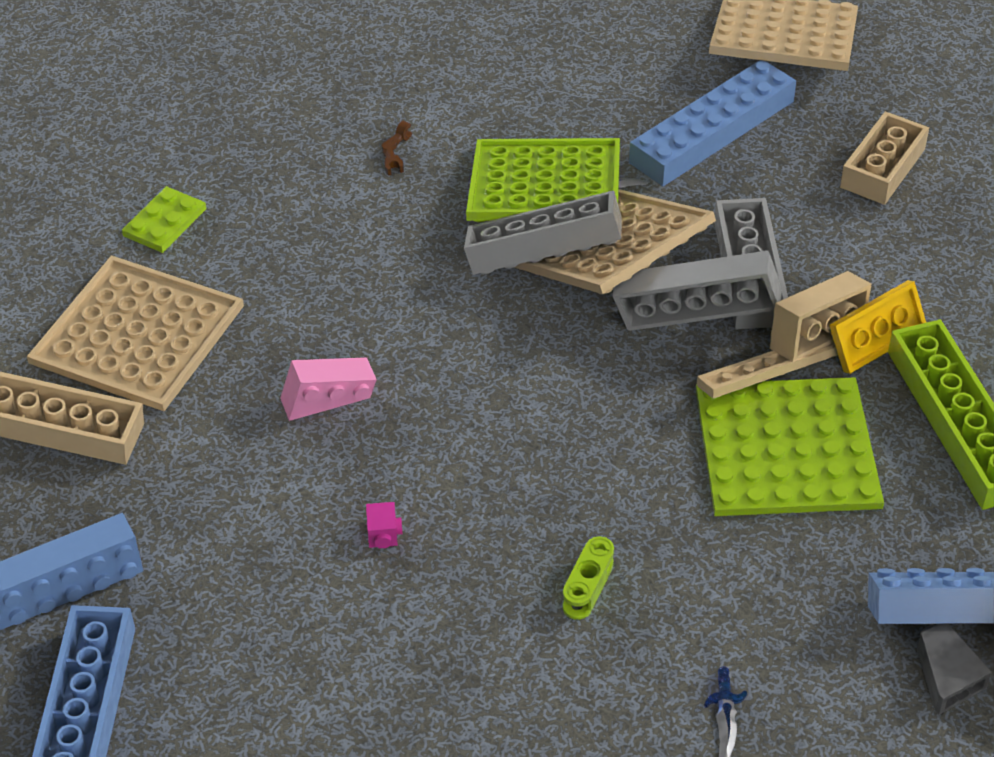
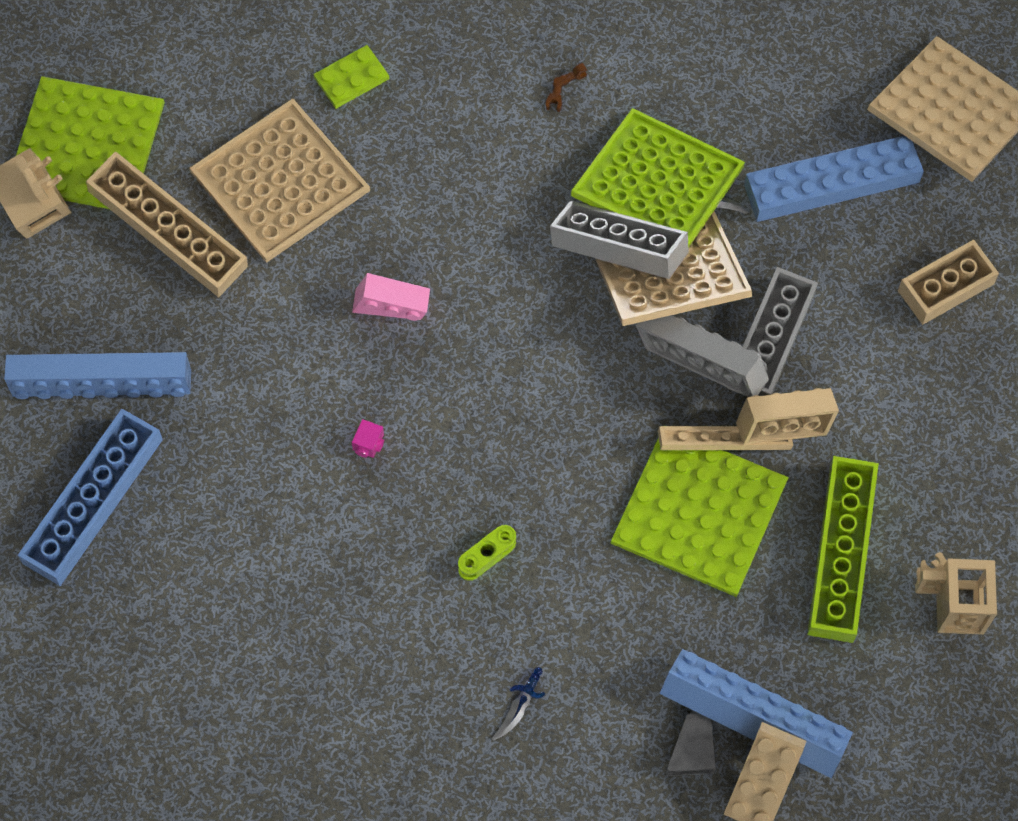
camera: 25 degrees right, 20 degrees up
(868, 330) = (819, 443): yellow plate -> none

